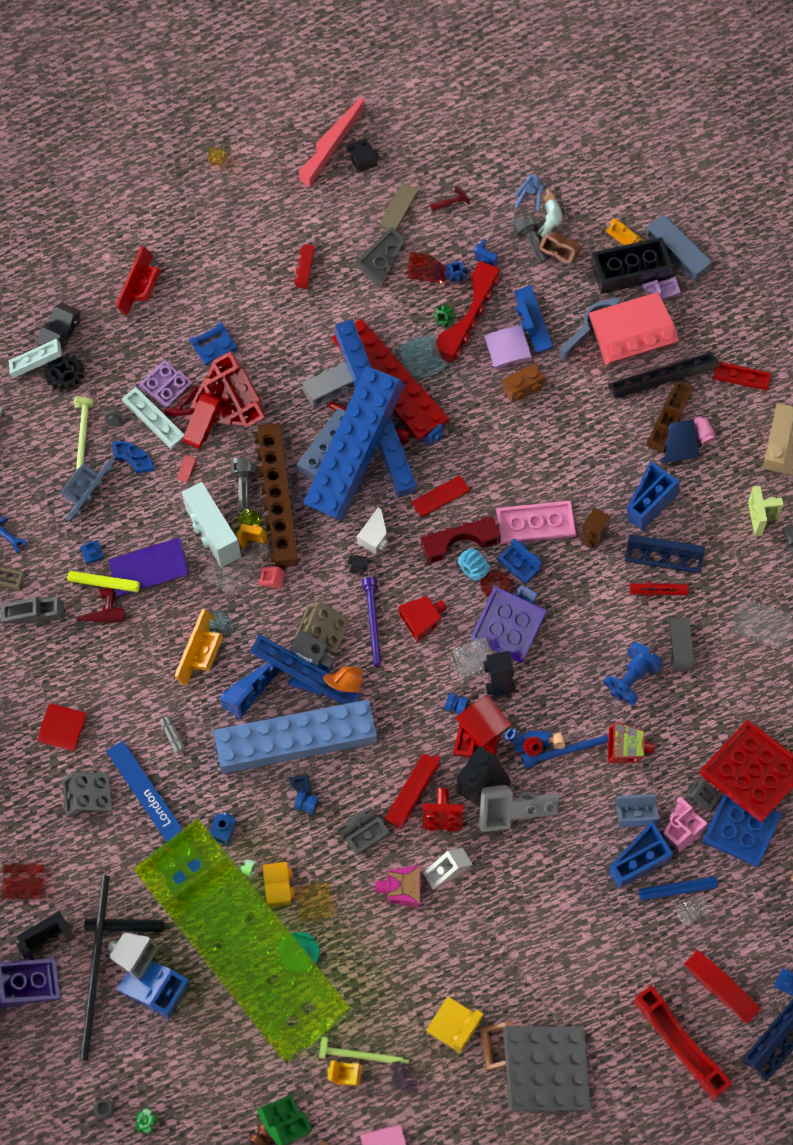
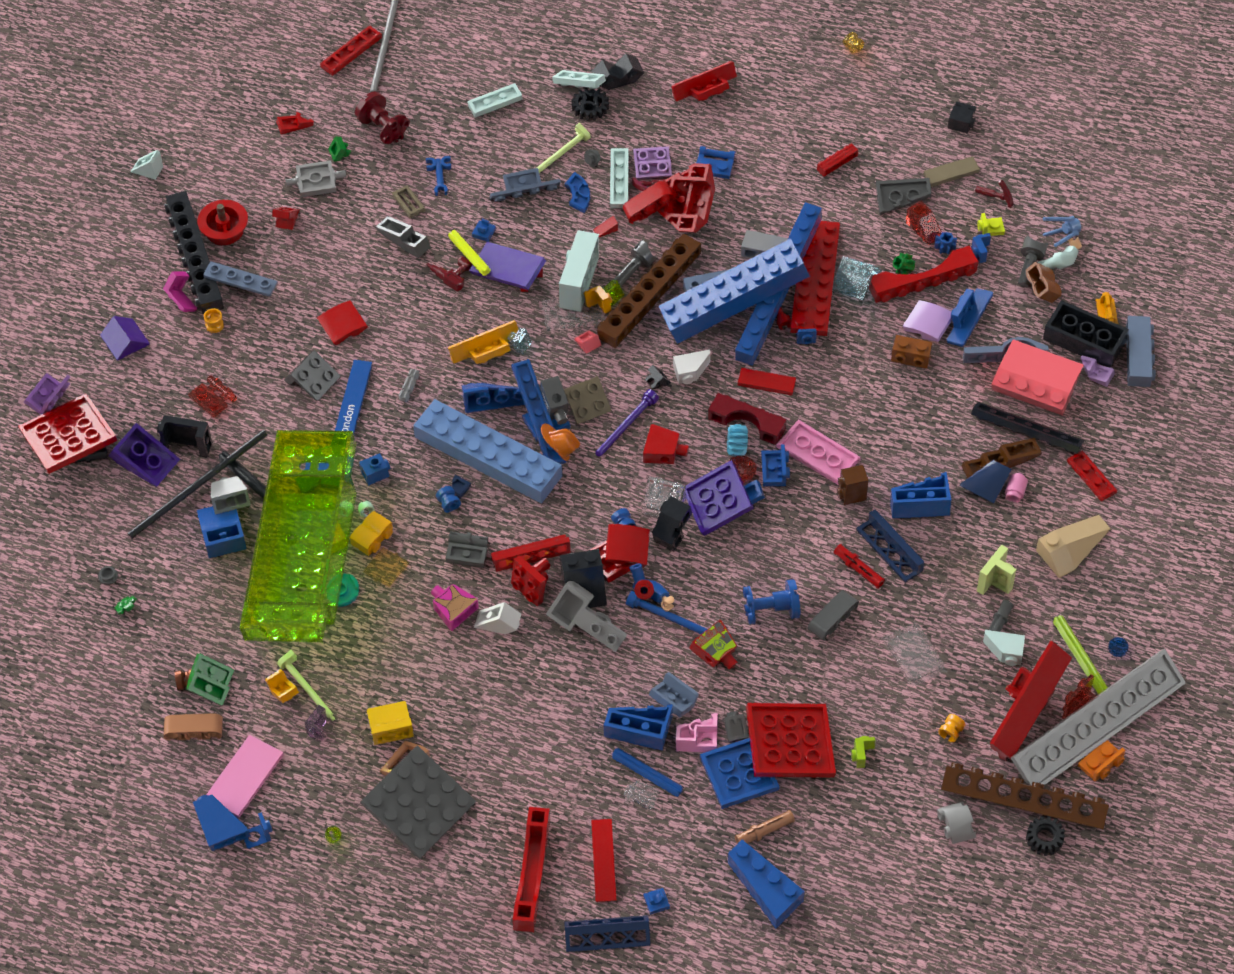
camera: 45 degrees right, 10 degrees down
(329, 143) = (948, 91): coral slope -> none
(473, 231) = (993, 225): none -> neon yellow bracket

